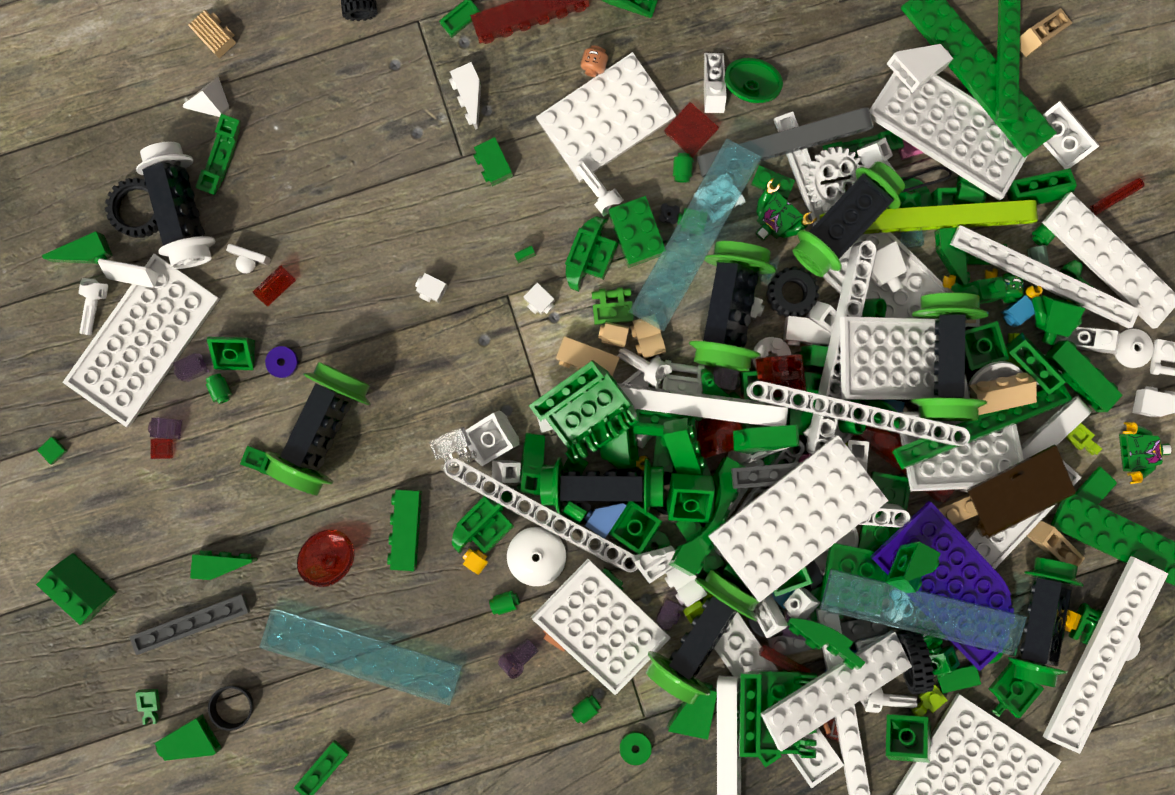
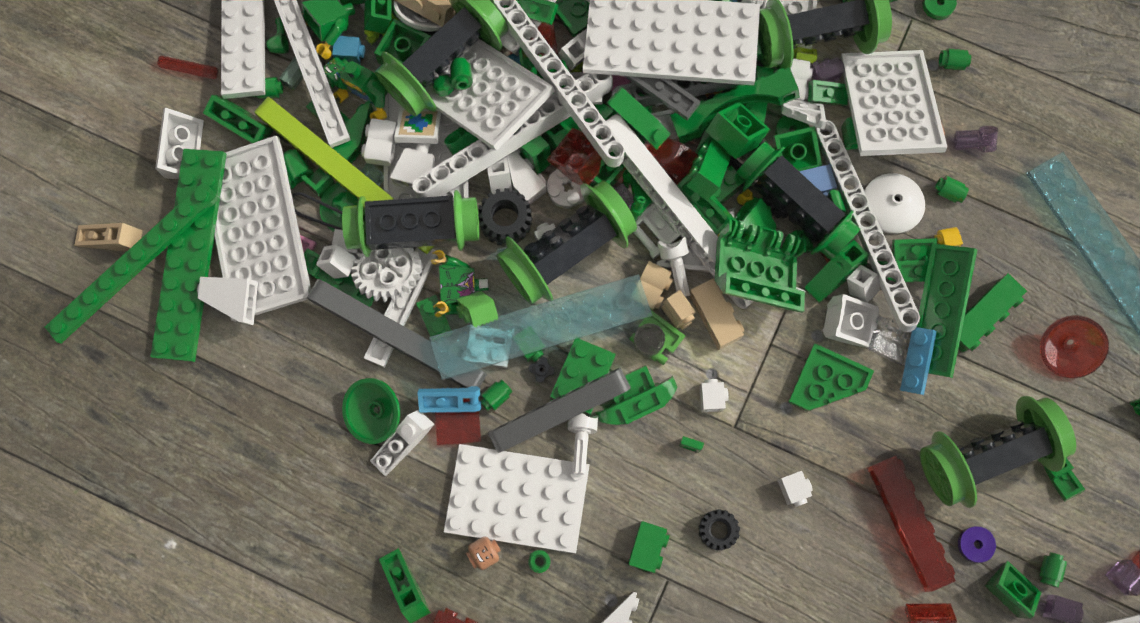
camera: 145 degrees left, 10 degrees down
(336, 334) = (911, 524): none -> clear red brick
(423, 450) = (918, 360): none -> dark azure plate
(436, 500) = (945, 302): none -> green plate
(451, 205) = (732, 530): none -> black tyre
(473, 383) = (827, 379): none -> green plate
(554, 85) = (531, 561): none -> green plate
(615, 295) = (649, 340): none -> clear smoke wheel
(630, 190) = (559, 410): none -> dark grey beam
(654, 595) = (827, 93): none -> green plate
(709, 134) = (449, 399): none -> dark azure plate
(748, 204) = (477, 309): none -> bright green brick
(909, 293) = (418, 129): none -> tile
(919, 354) = (461, 74): none -> green brick
(924, 337) = (443, 86): none -> green tile
(928, 262) = (380, 142): none -> white brick

